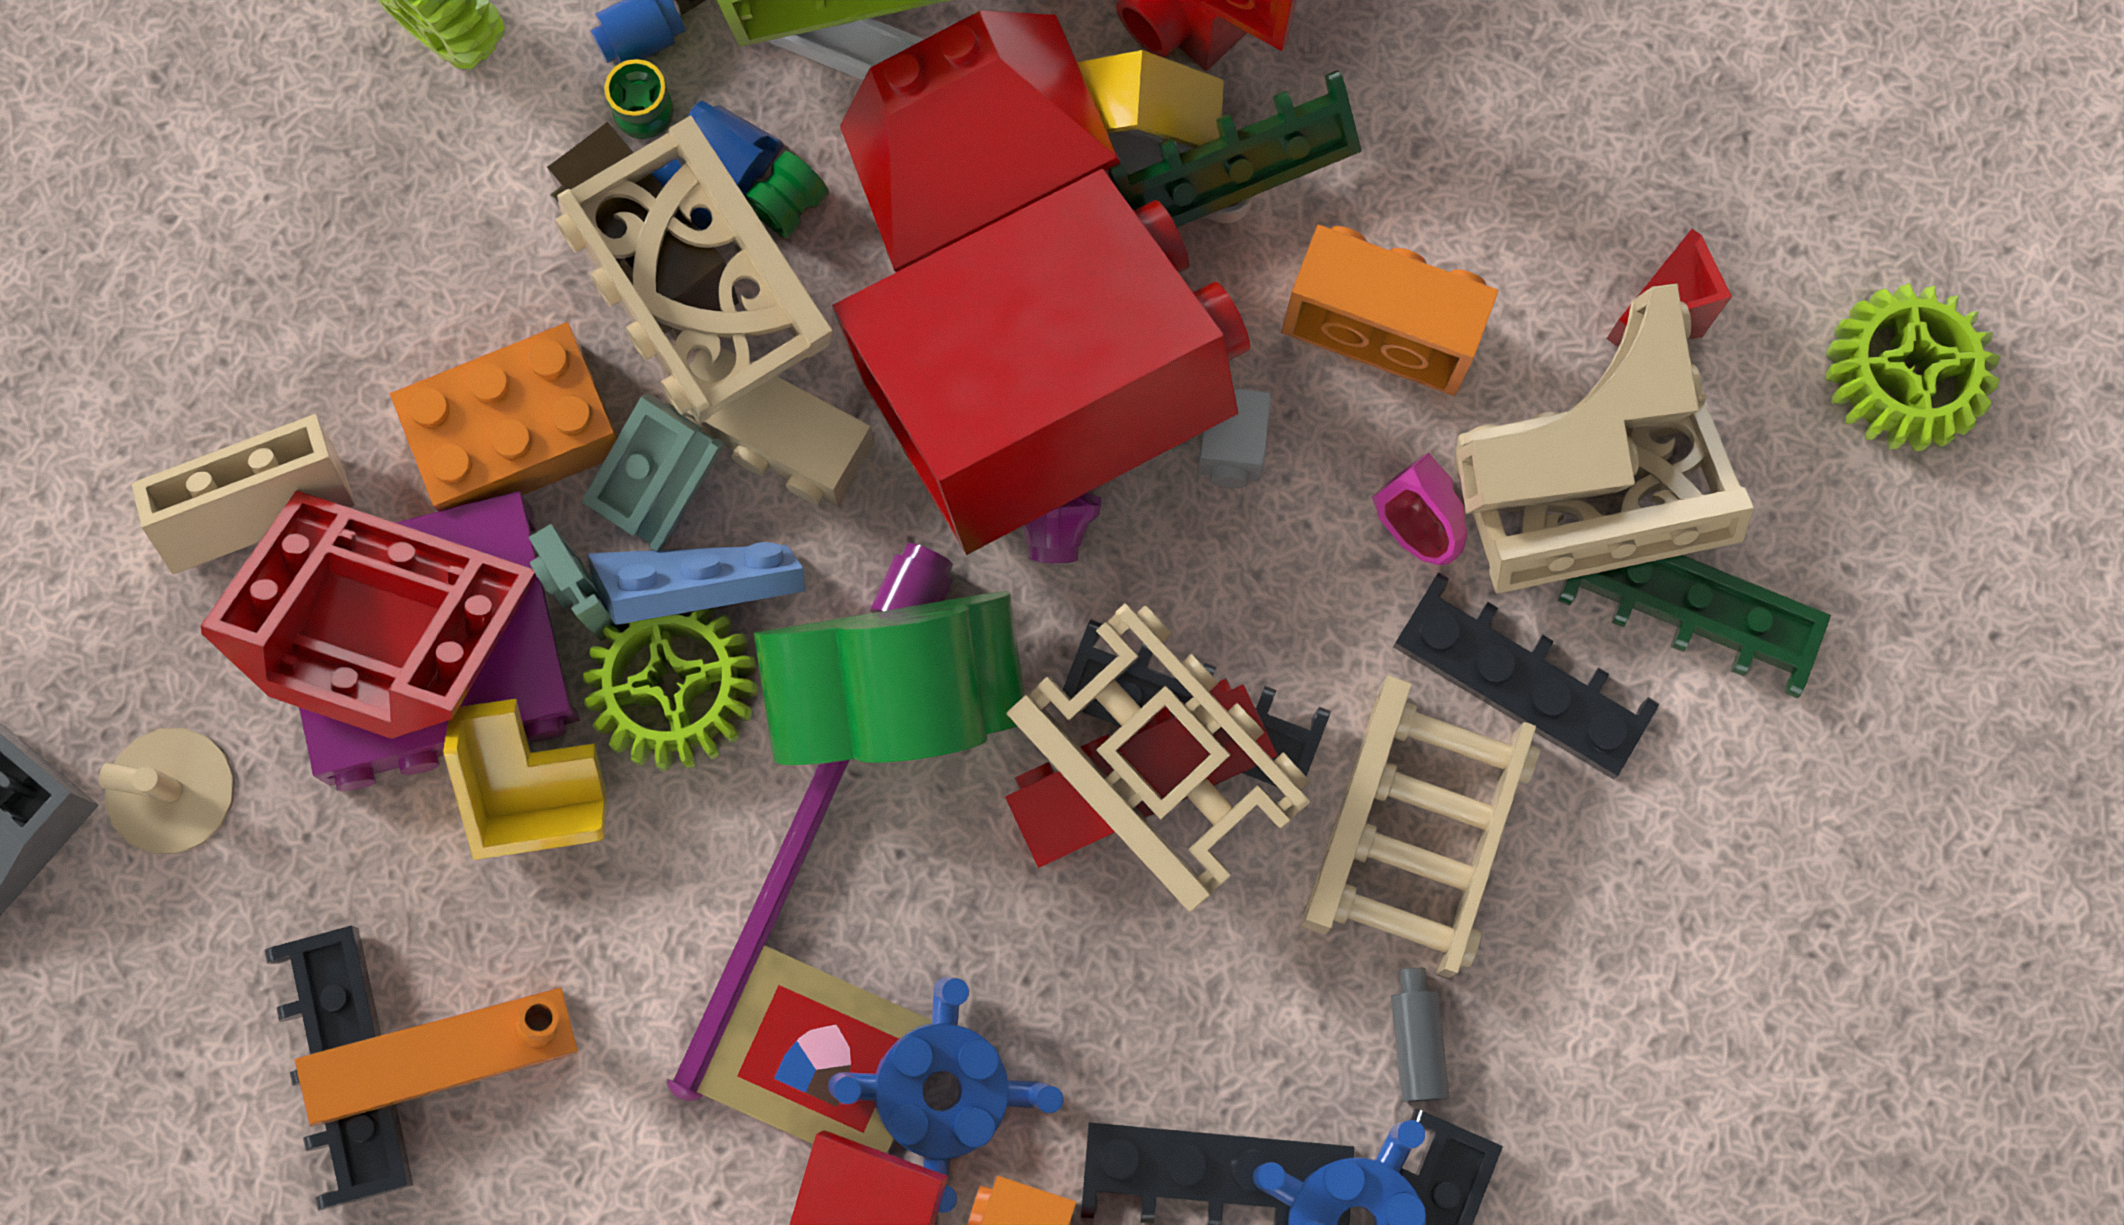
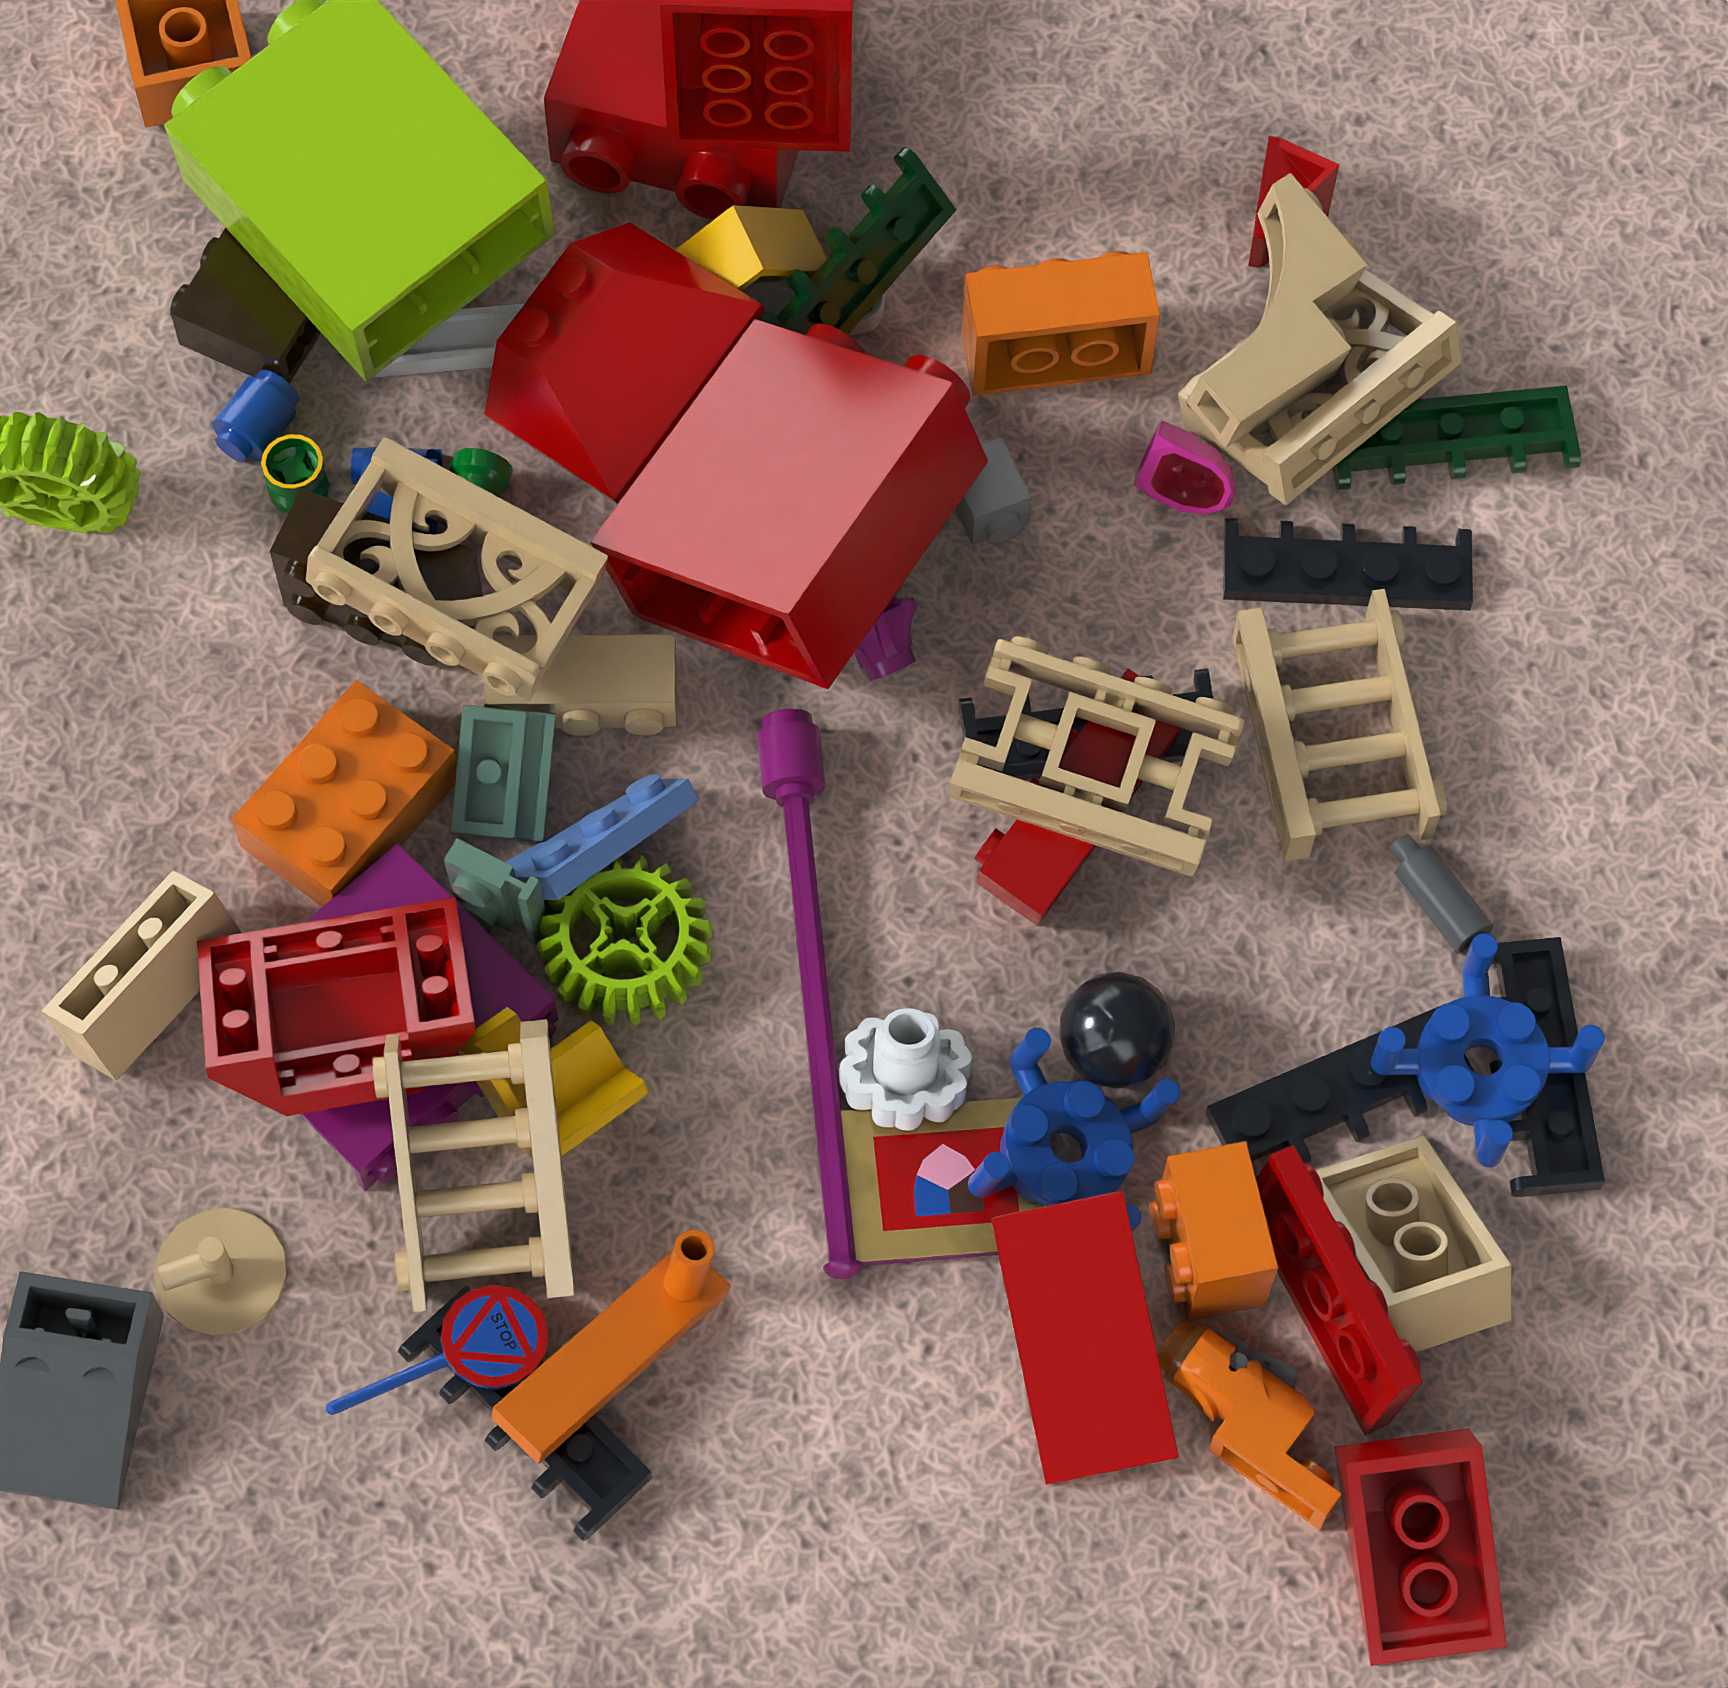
camera: 30 degrees left, 10 degrees down
(337, 988) = (486, 1337): none -> piece
(465, 829) = (530, 1128): none -> tan fence
(841, 939) = (905, 1069): none -> white plant
(891, 682) = (821, 826): green brick -> none
(1044, 1011) = (1117, 1030): none -> black piece
(1913, 324) = (1510, 179): lime gear -> none

